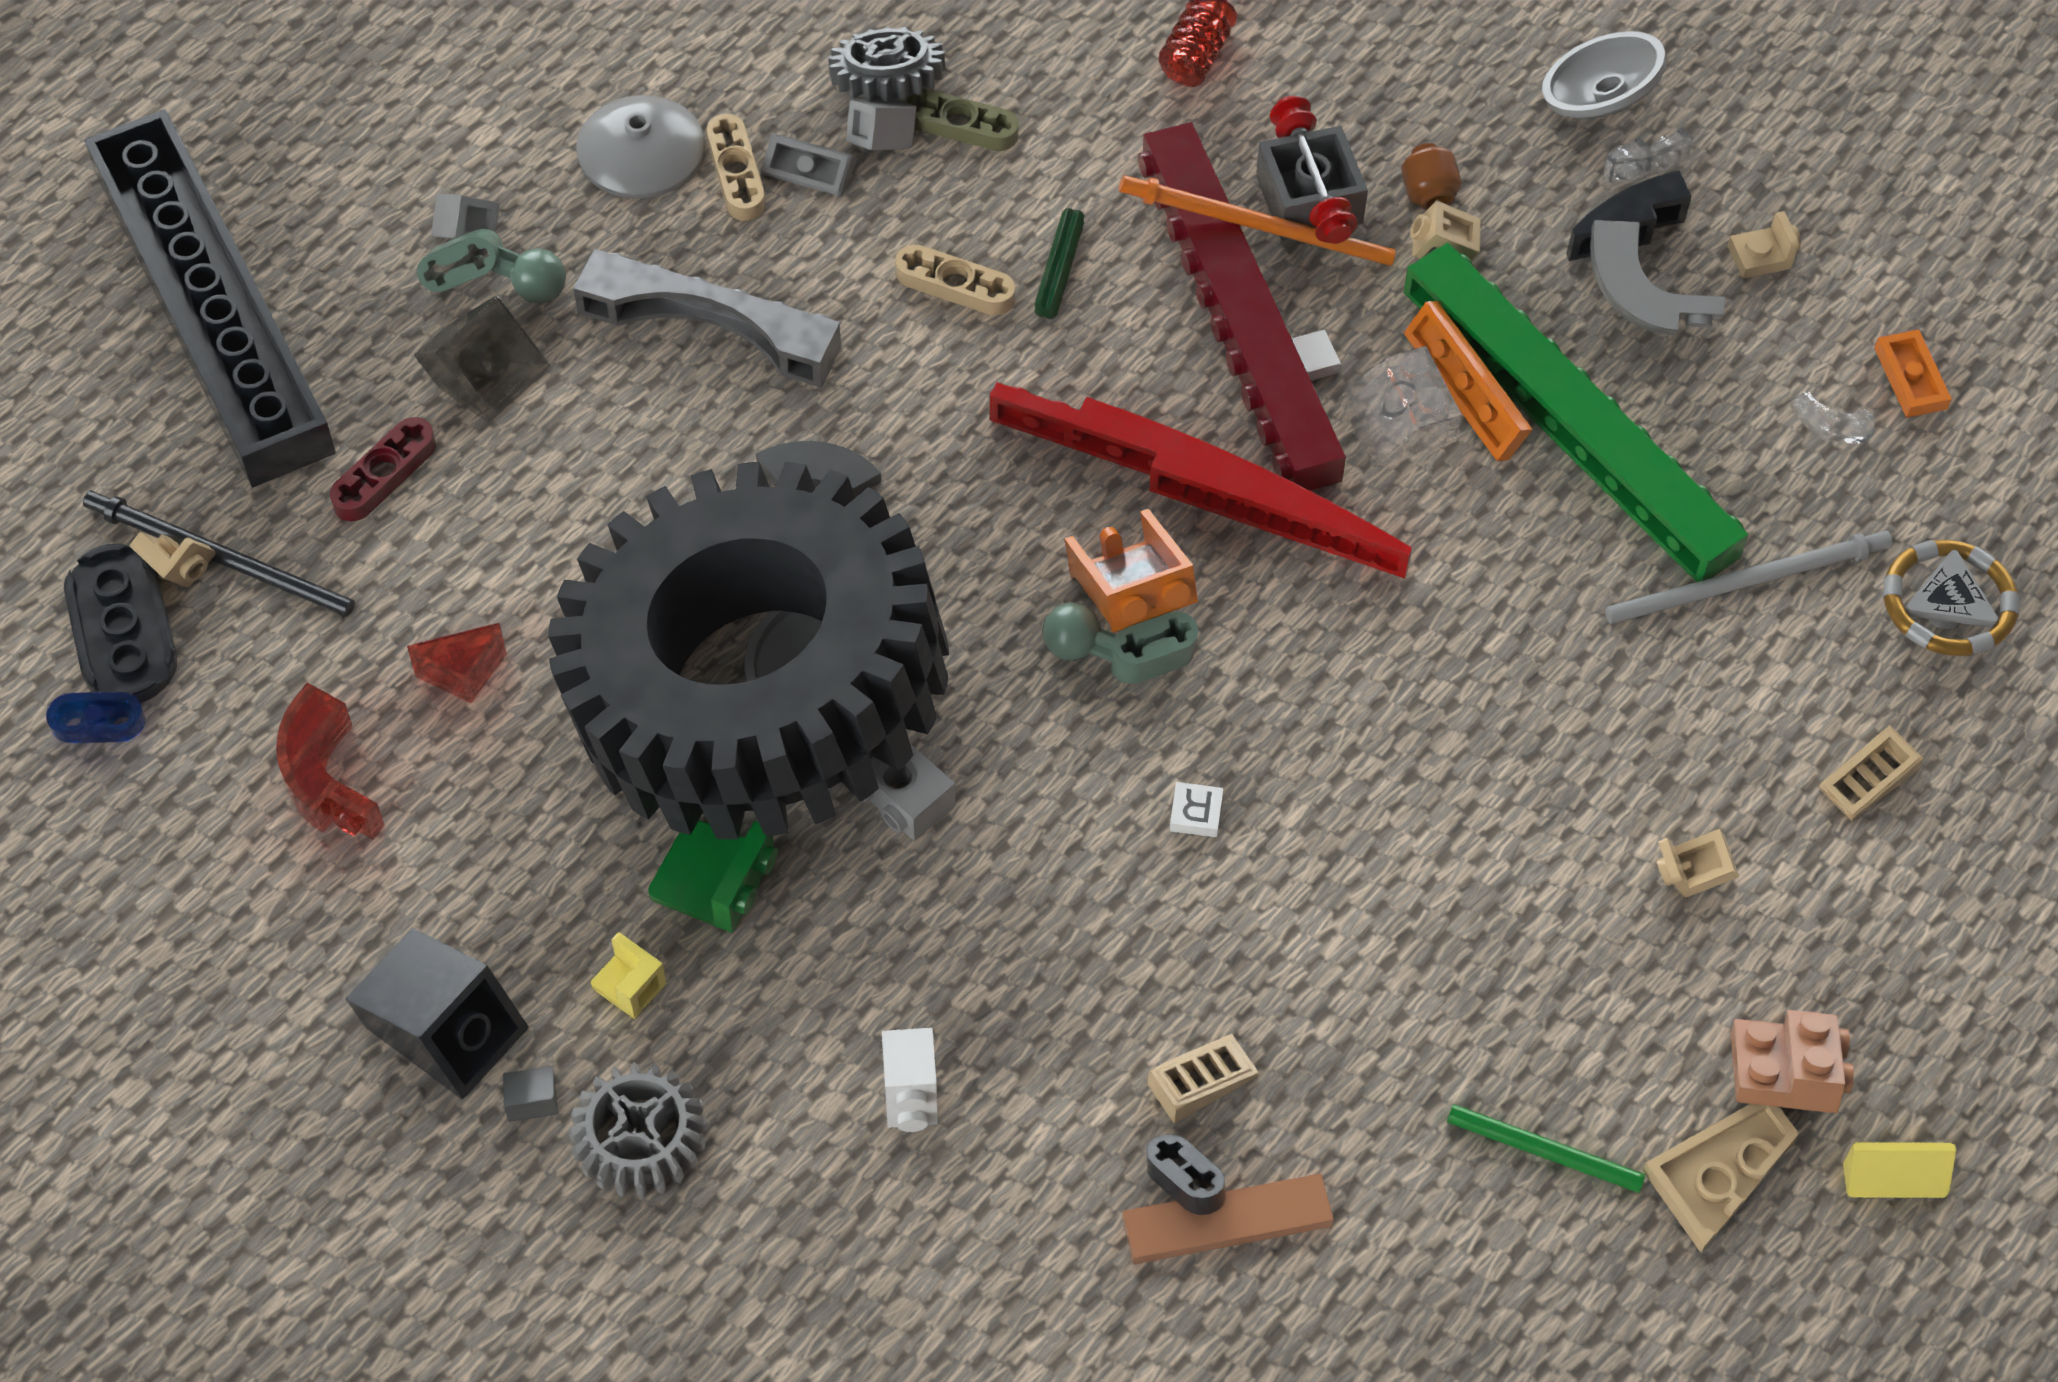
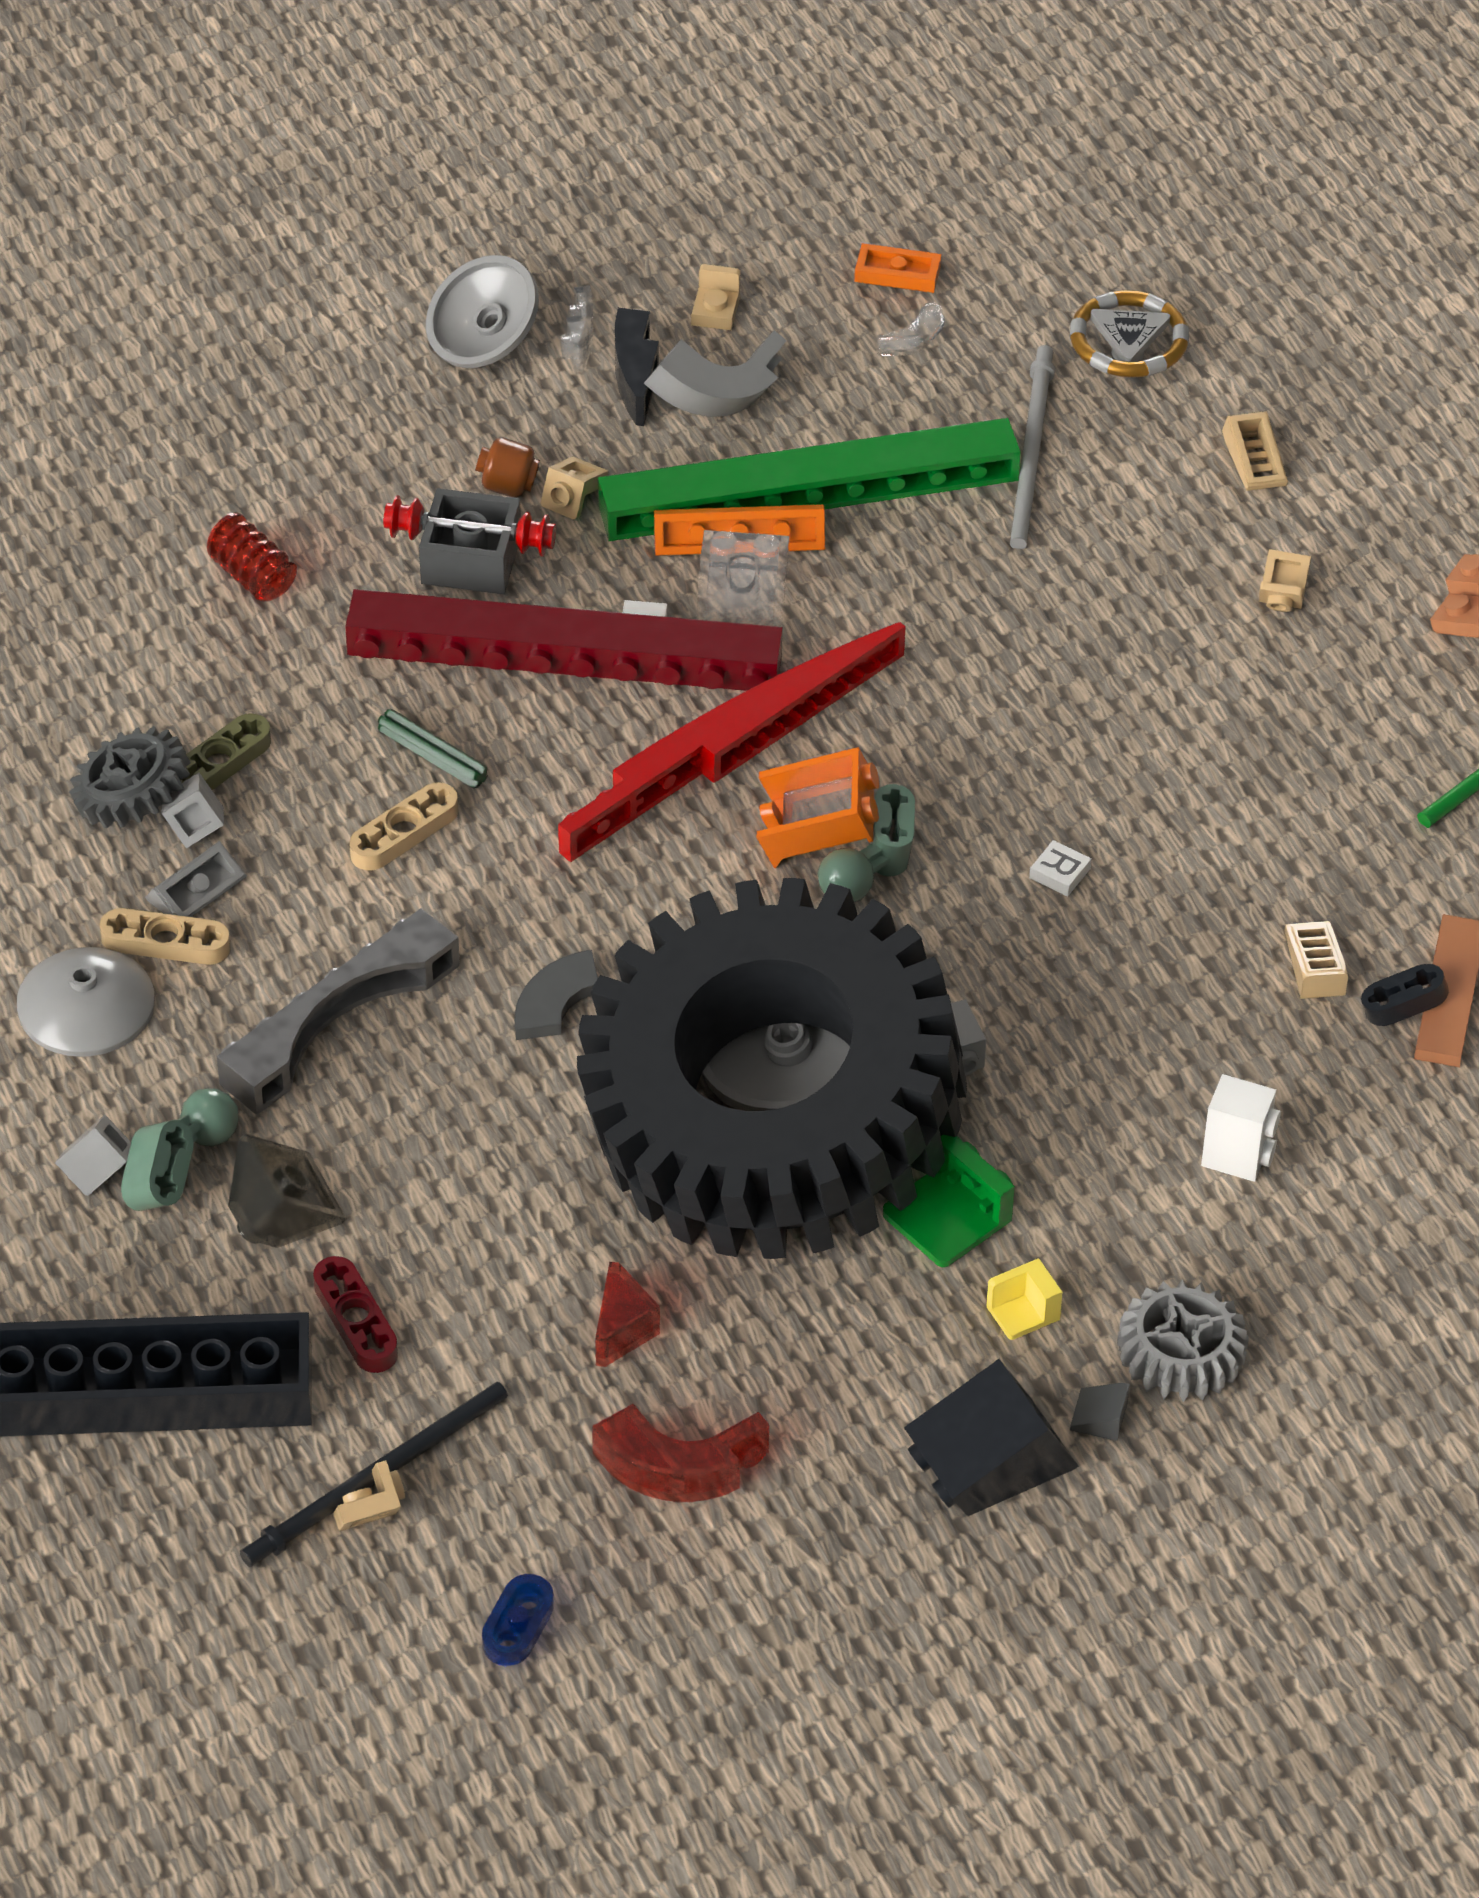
camera: 65 degrees left, 10 degrees down
(120, 623) = (410, 1575): black tile -> none
(1152, 192) = (438, 629): orange bar -> none

